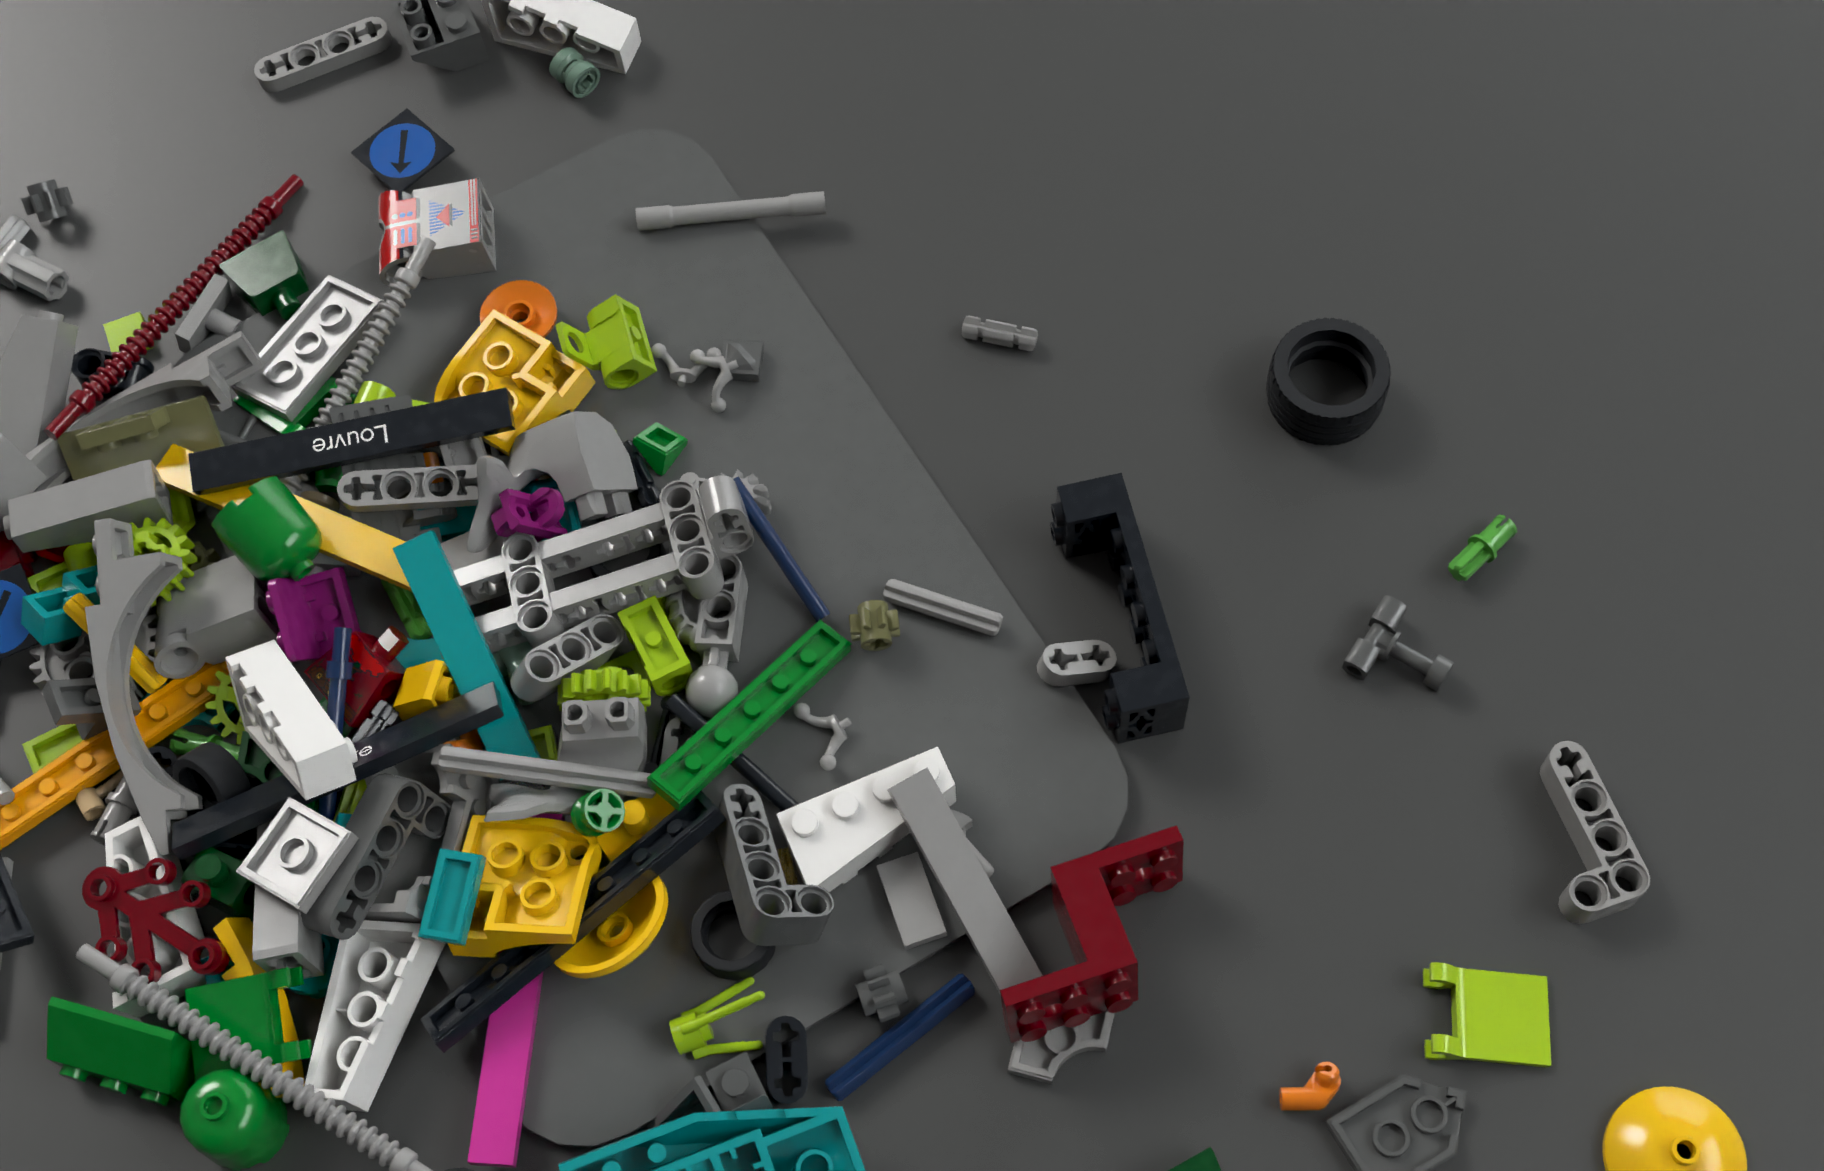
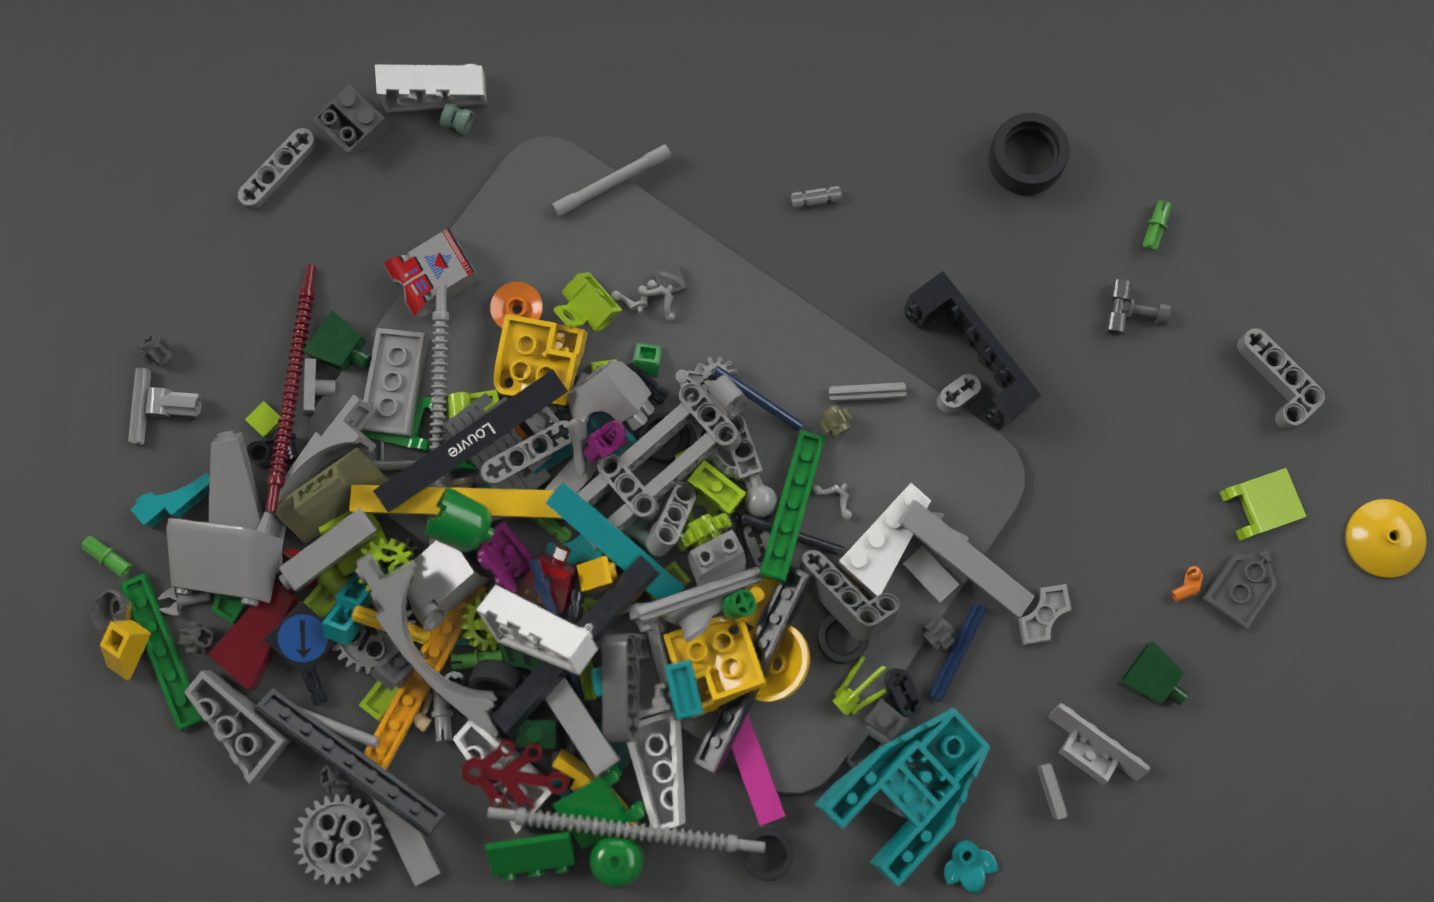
camera: 30 degrees left, 15 degrees up
(297, 855) = (585, 705): tile -> none
(402, 151) = (374, 220): piece -> none
(1085, 904) = (1044, 552): dark red bracket -> none

